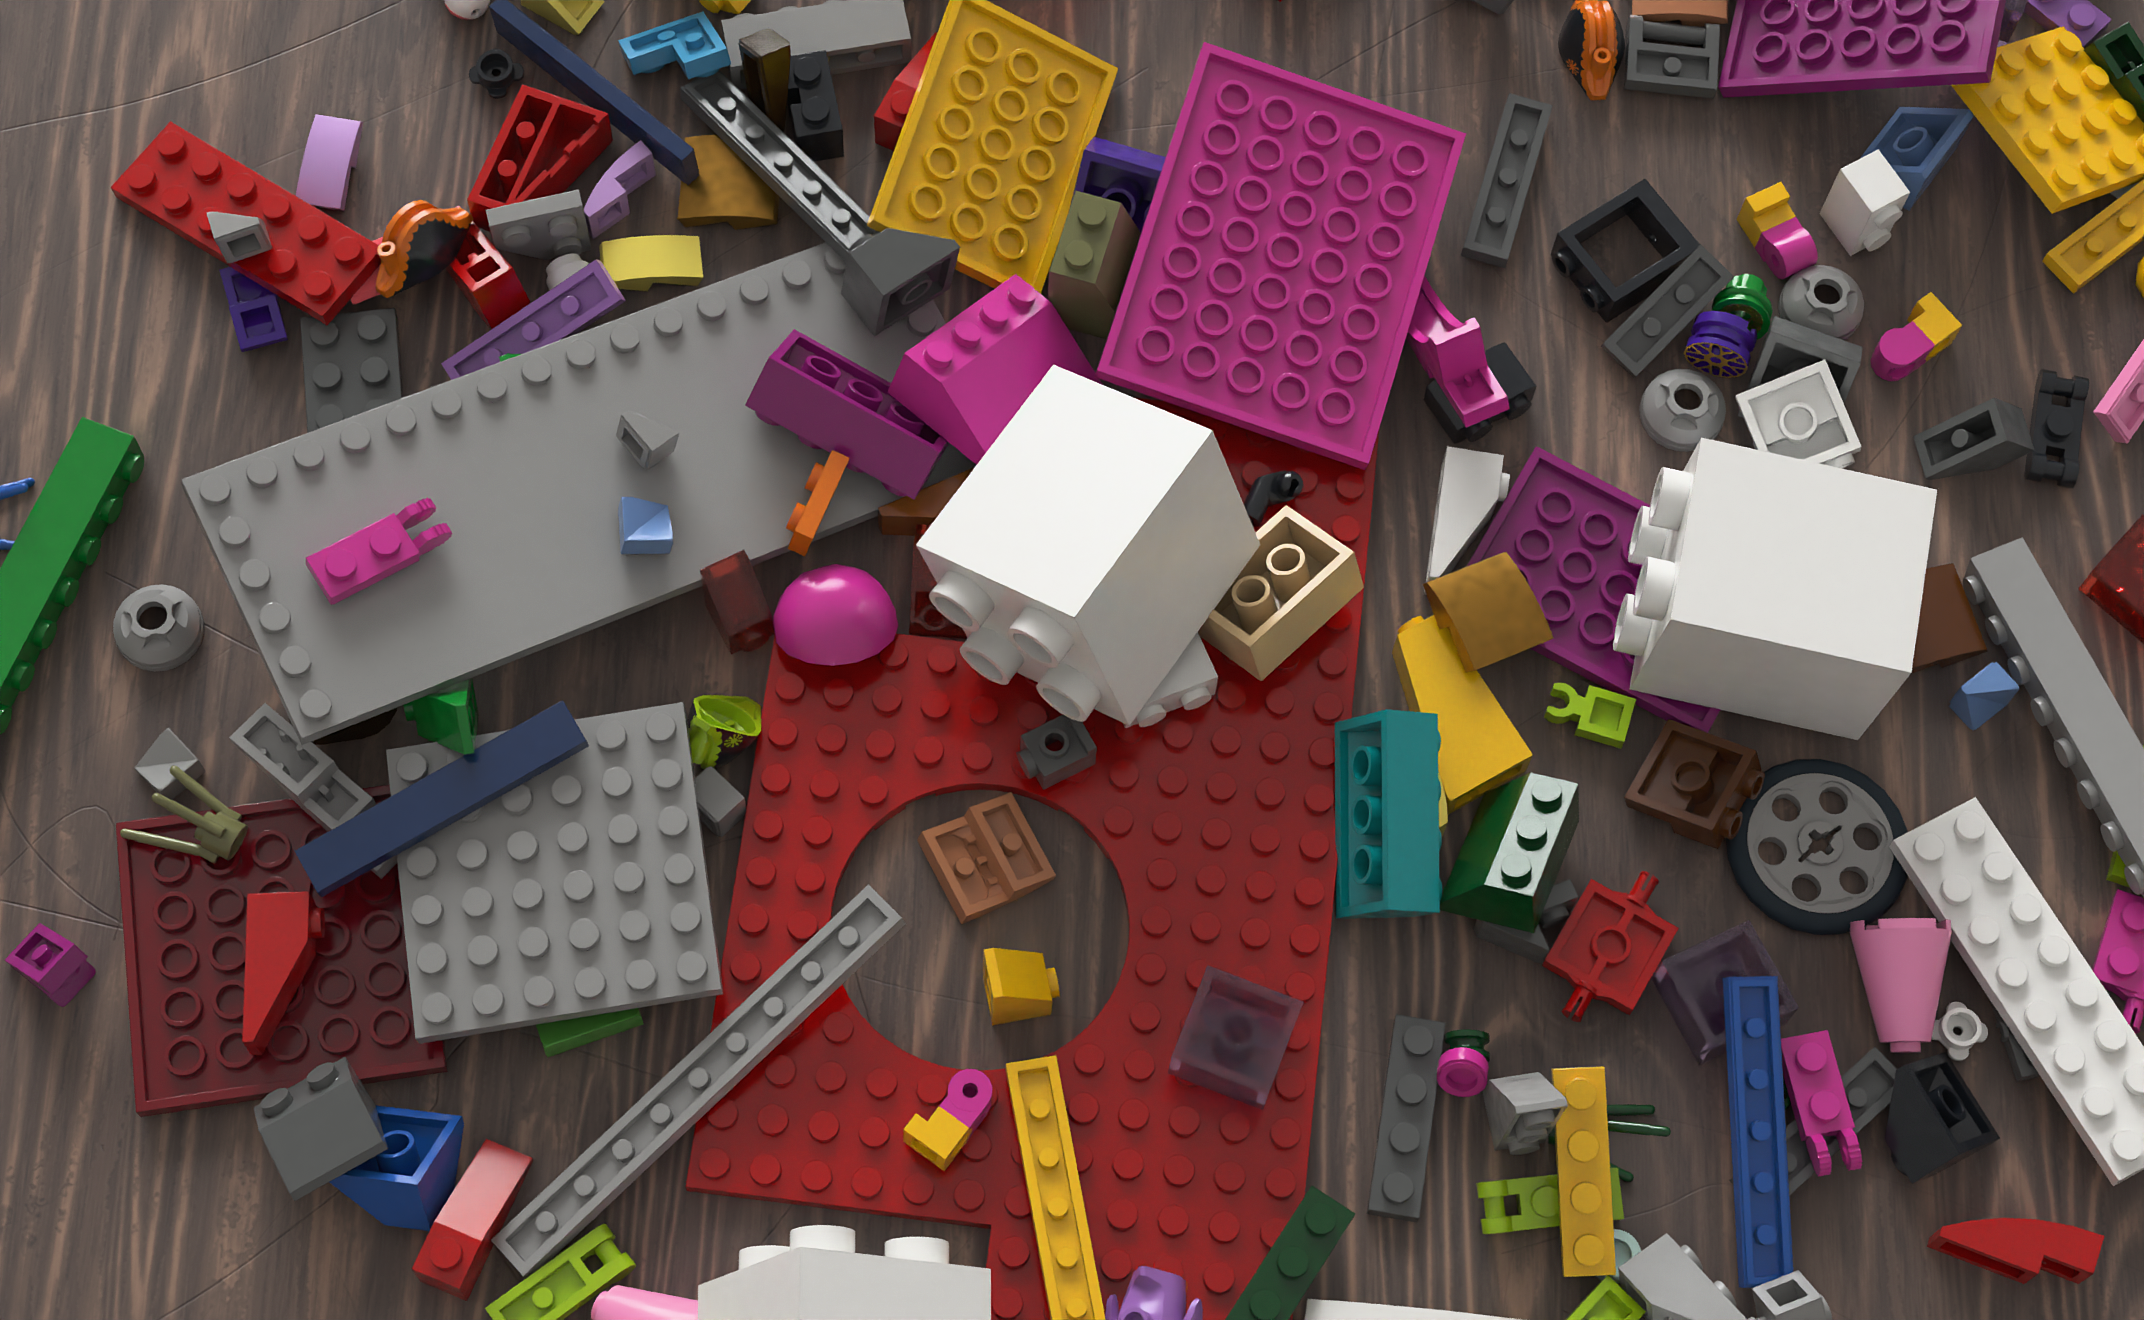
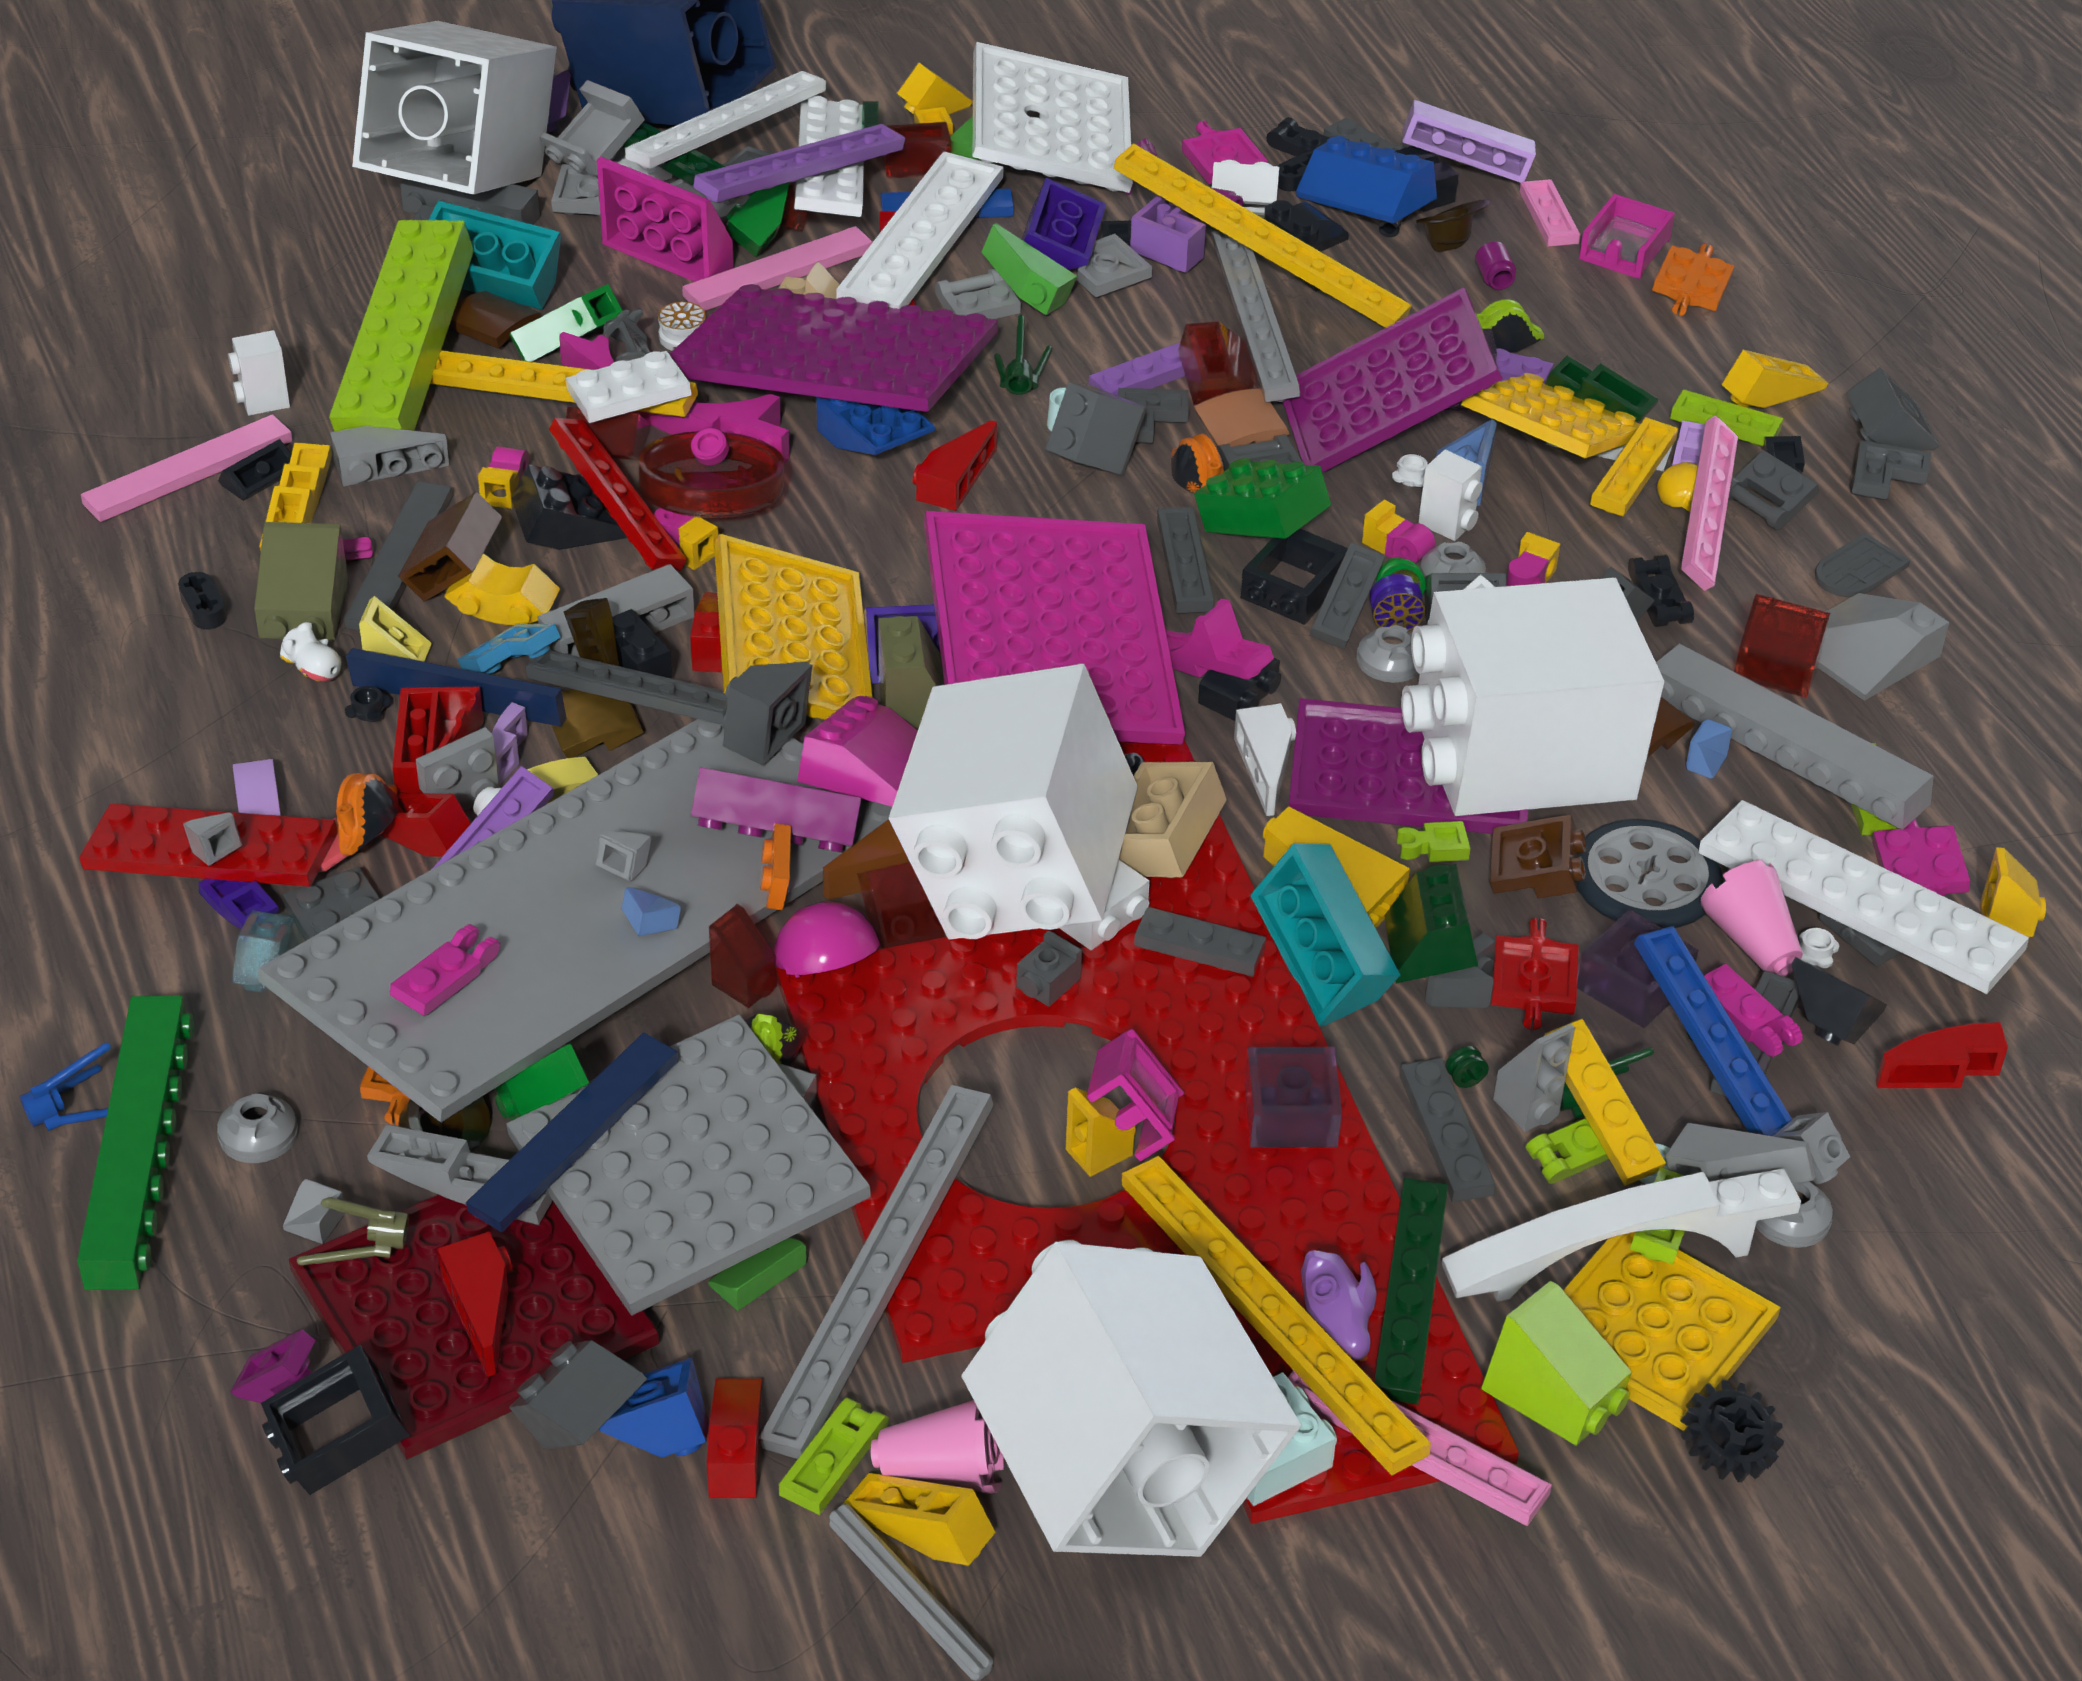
camera: 20 degrees left, 25 degrees down
(121, 1054) = (317, 1393): none -> black window
(245, 393) = (259, 941): none -> clear light blue slope
(953, 1120) = (1102, 1215): leg -> none
(986, 857) = (1026, 1069): nougat slope -> none
(1071, 960) = (1146, 1082): none -> dark pink window
(1248, 766) = (1200, 941): none -> dark grey plate
(1462, 1072) = (1474, 1078): dark pink tile -> none
(1488, 611) = (1328, 792): pearl gold slope -> none
(1631, 134) = (1262, 498): none -> green brick
(1852, 123) = (1410, 470): none -> white plate

